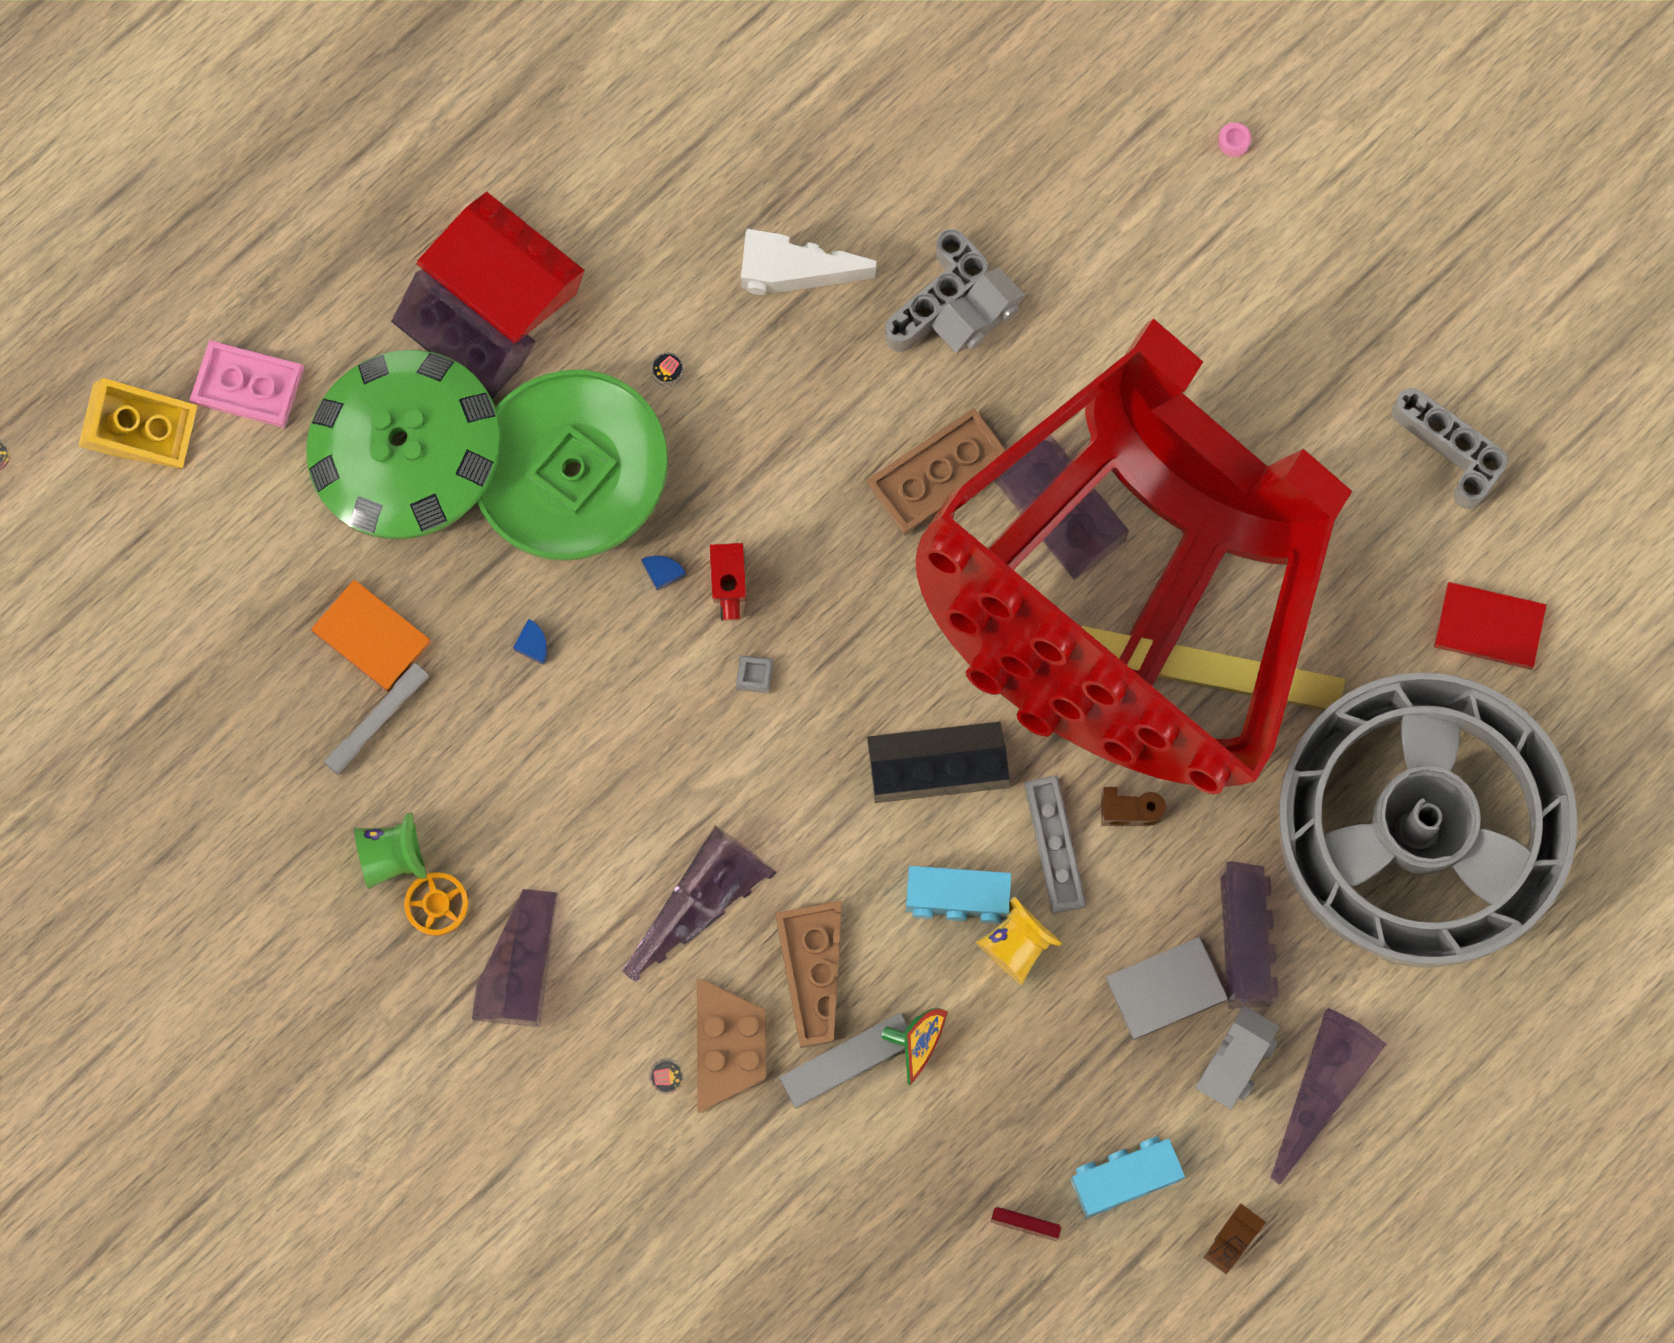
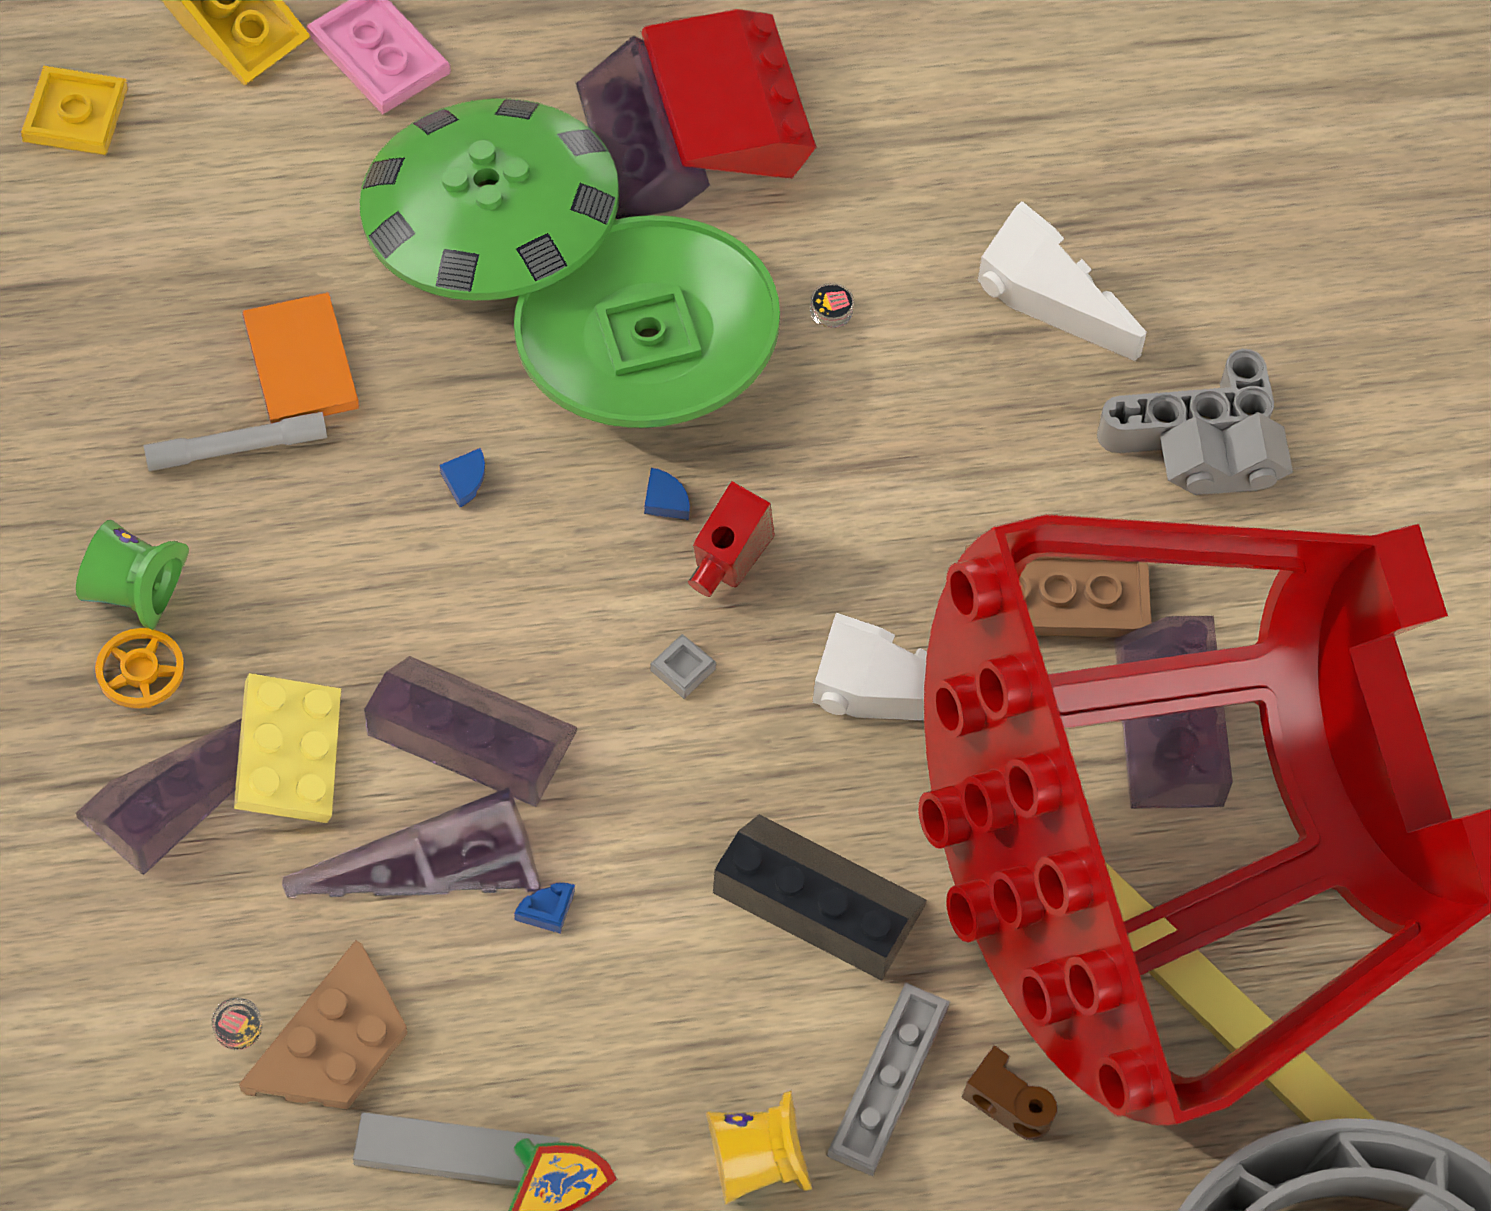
camera: 30 degrees right, 15 degrees down
(88, 563) = (74, 110): none -> yellow tile
(566, 892) = (287, 748): none -> light yellow plate
(661, 803) = (468, 729): none -> slope
(788, 880) = (546, 907): none -> blue tile
(811, 963) = (499, 1013): medium nougat wing -> none
(871, 607) = (869, 674): none -> white wedge
(958, 894) = (729, 1048): medium azure brick -> none

